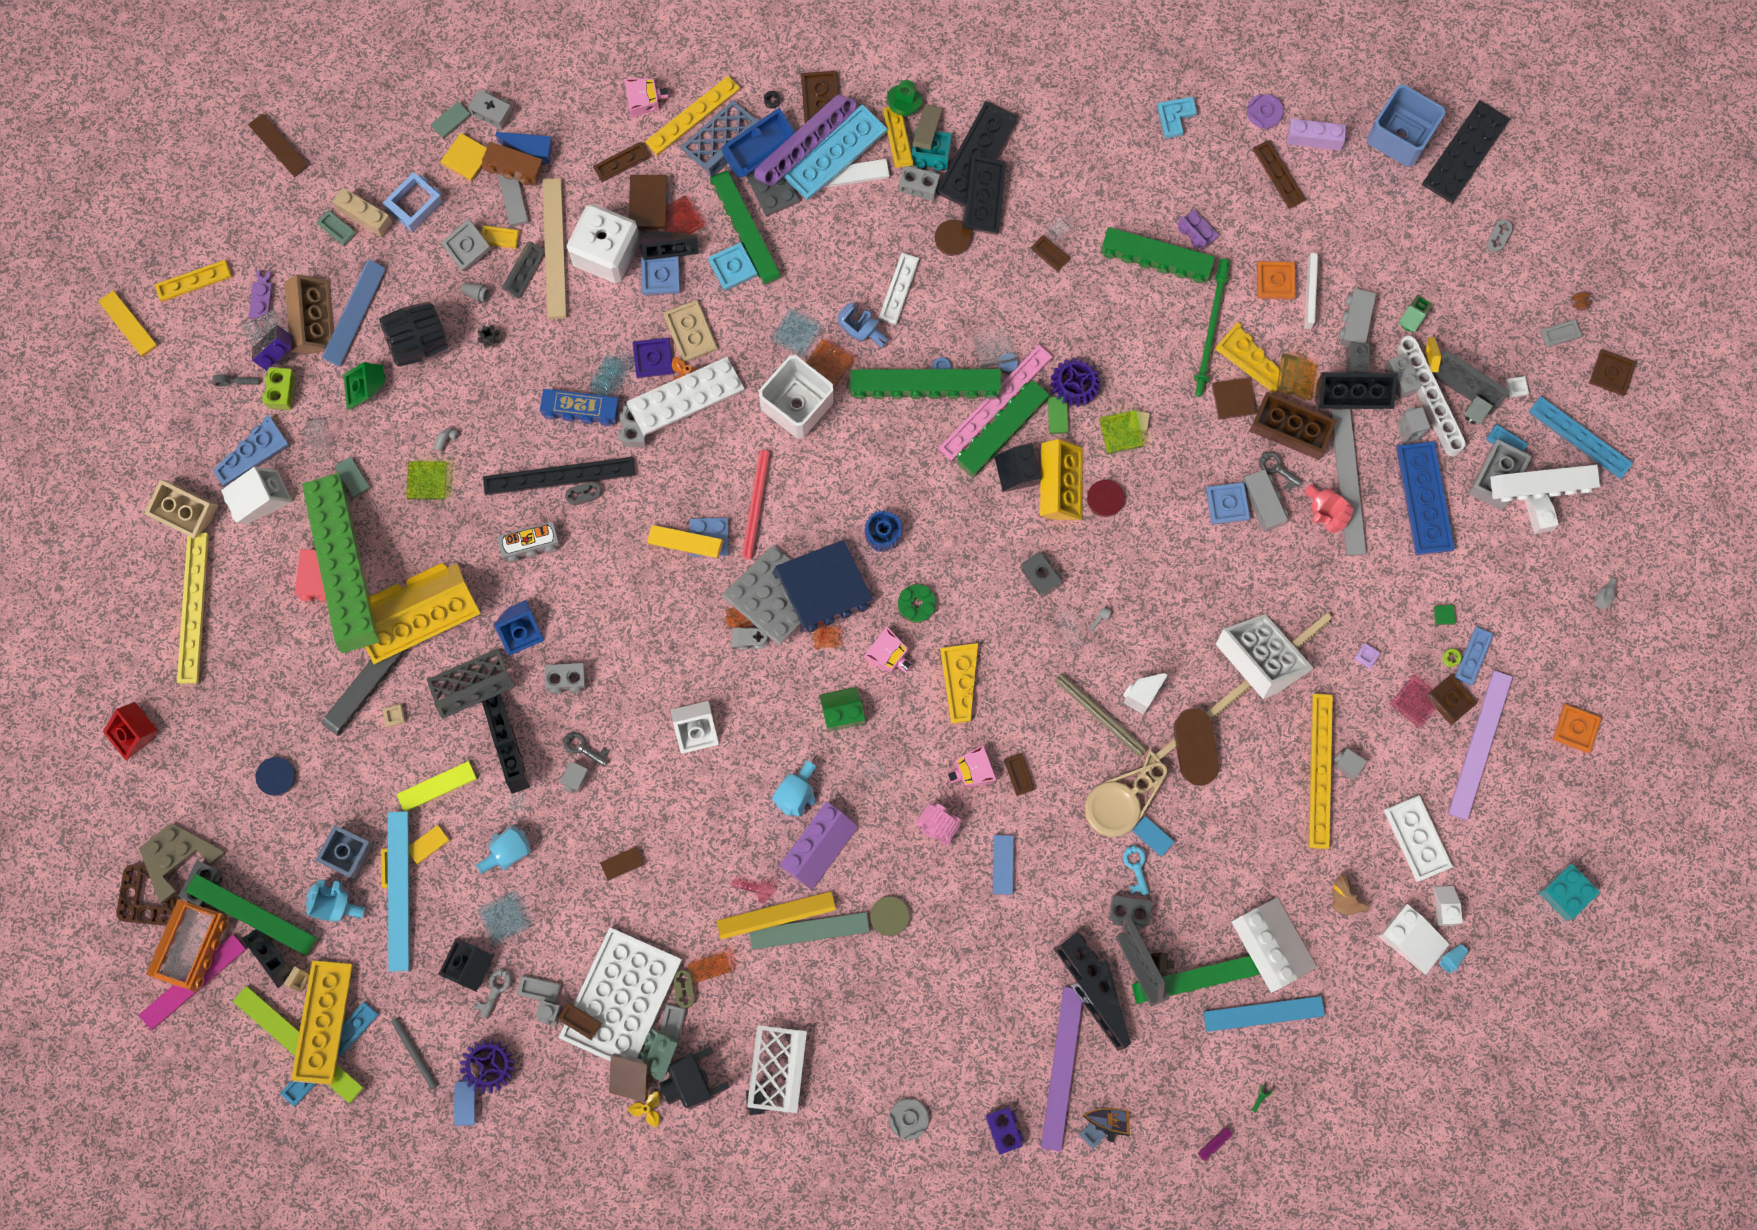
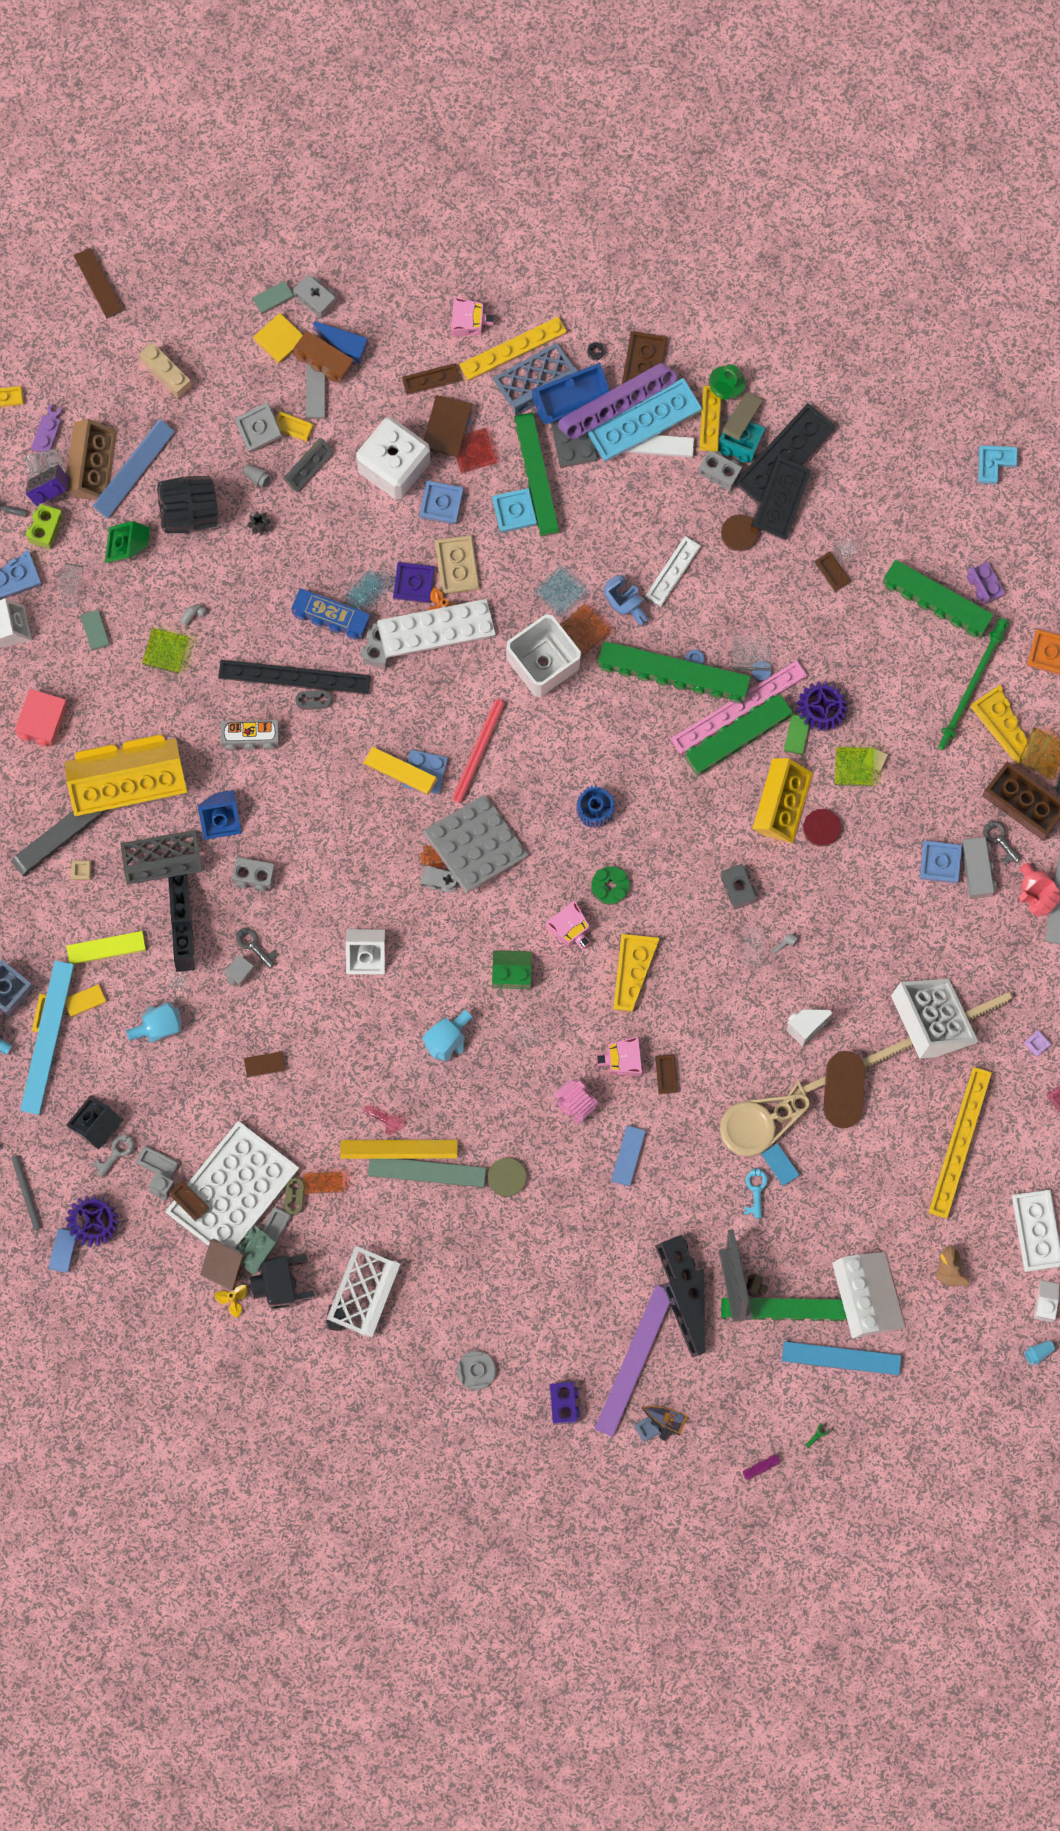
camera: 15 degrees right, 0 degrees up
(336, 228) = (135, 379): sand green tile -> none
(340, 563) = (66, 711): bright green brick -> none
(430, 206) = (224, 385): light blue window -> none
(503, 918) = (139, 1088): clear light blue tile -> none
(554, 248) = (344, 450): tan tile -> none
(665, 245) = (455, 474): black slope -> none
(818, 846) = (456, 1093): medium lavender slope -> none
(824, 586) = (523, 846): dark blue panel -> none
(825, 638) = (513, 897): clear orange tile -> none
(1017, 468) = (743, 777): black slope -> none
(1101, 715) = (760, 1036): dark tan axle -> none
(1130, 906) = (740, 1224): dark grey brick -> none
(1233, 398) = (975, 760): reddish brown tile -> none
(1349, 763) = (989, 1142): light grey brick -> none
(1414, 938) = (1006, 1324): white slope -> none

